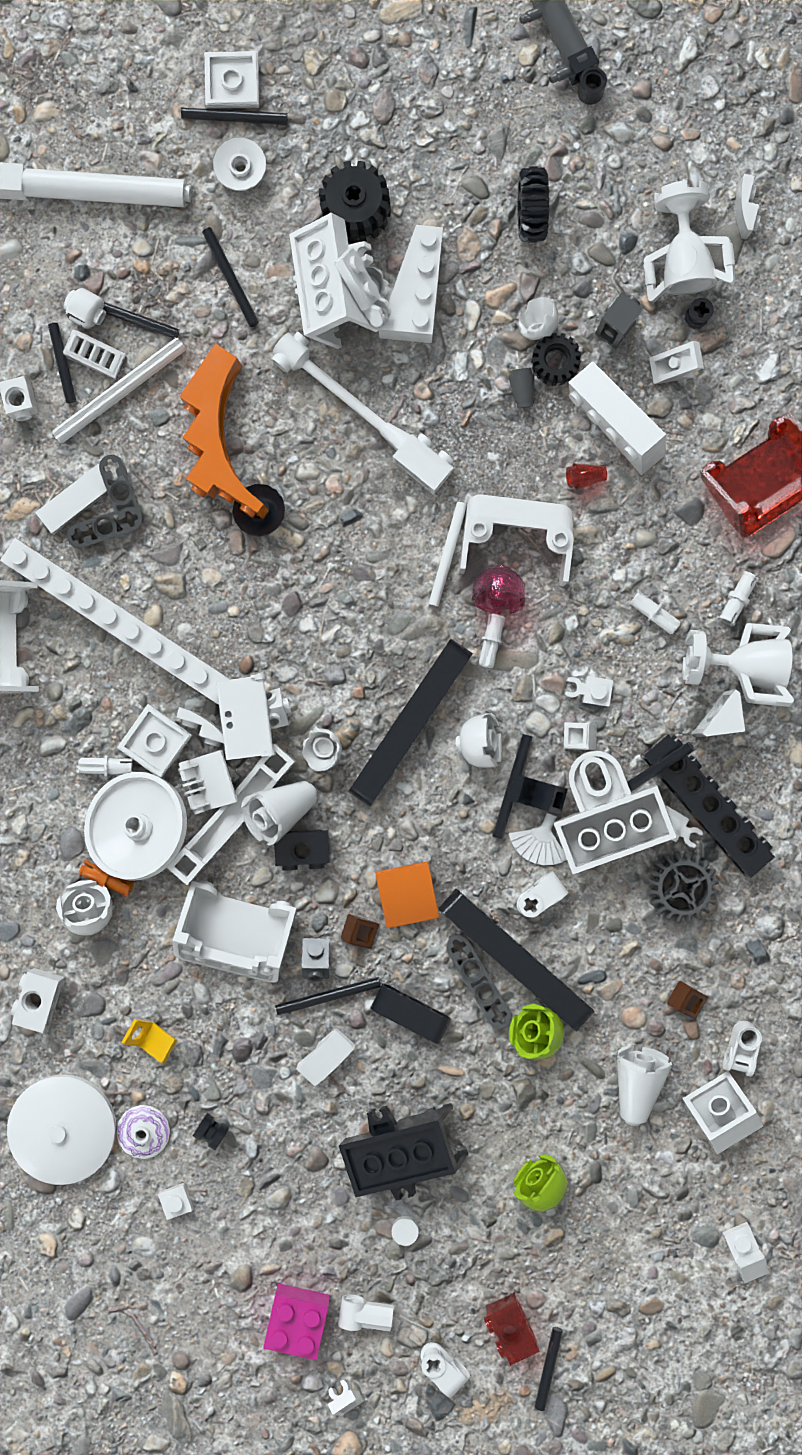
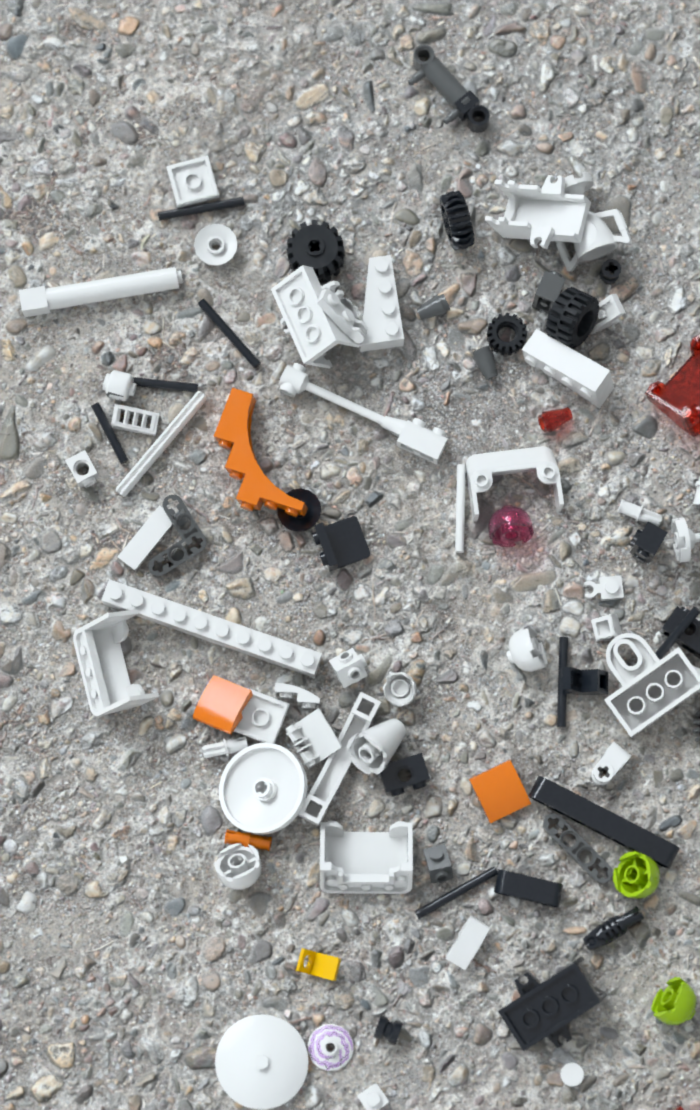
camera: 15 degrees left, 10 degrees down
(48, 988) = (221, 968): white brick -> none
(113, 716) = (222, 704): none -> slope
(247, 724) = (337, 683): white door -> none
(297, 561) = (341, 543): none -> black bracket
(359, 931) = (468, 832): reddish brown slope -> none
(410, 722) = (465, 650): black beam -> none
(478, 305) = (434, 307): none -> dark grey cone
(491, 640) = (514, 567): white axle -> none
(493, 1082) = (611, 929): none -> black hinge
(539, 319) = (485, 306): white hair -> none
(539, 843) = (597, 723): white hand -> none
(636, 219) = (541, 213): none -> white piece
(639, 357) = (572, 317): none -> black tyre
(654, 650) = (647, 542): none -> black brick
(746, 210) = (625, 184): white slope -> none

